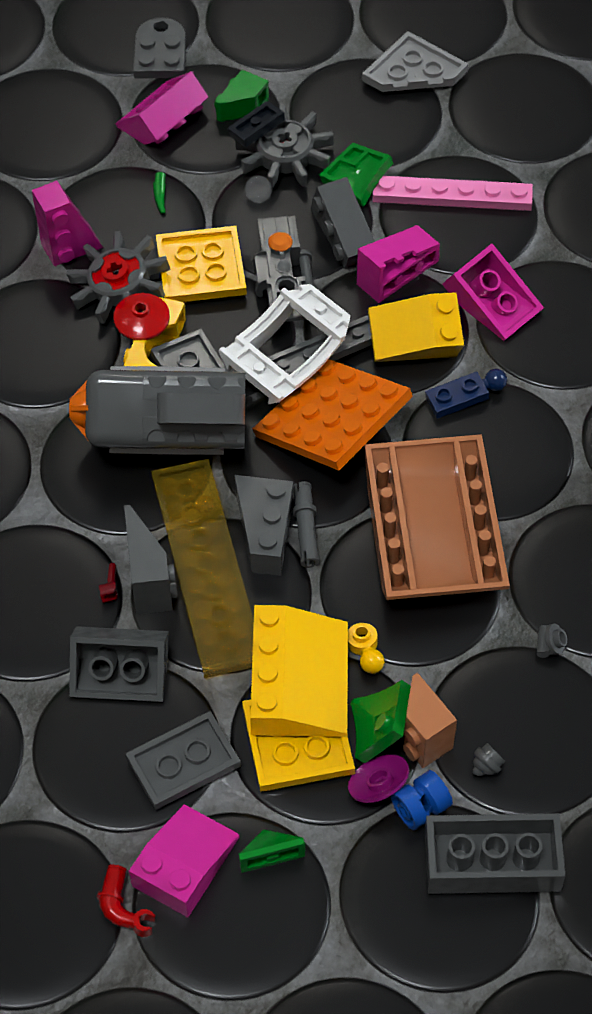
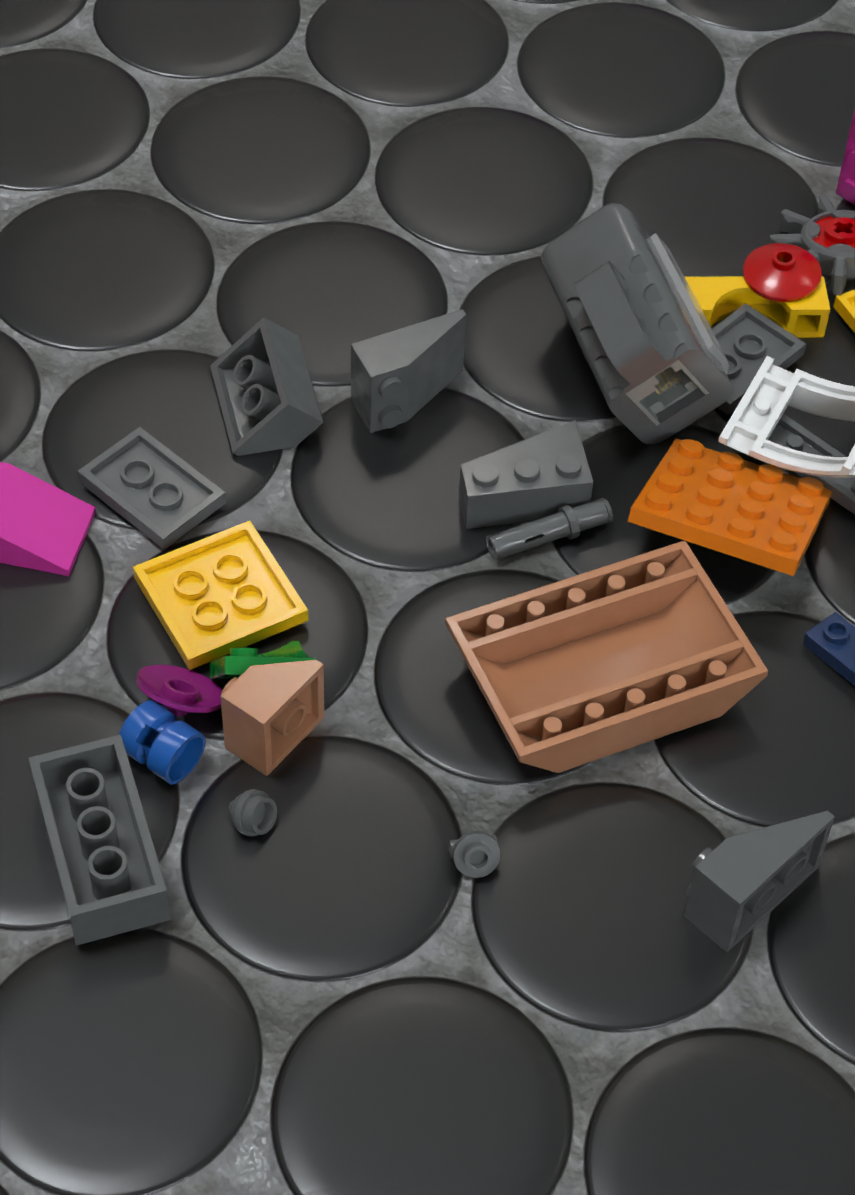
camera: 70 degrees right, 5 degrees down
(206, 567) = (434, 442): clear yellow plate -> none
(270, 849) = (51, 600): green slope -> none
(298, 673) = (301, 556): yellow slope -> none
(371, 659) = (393, 633): yellow plate -> none

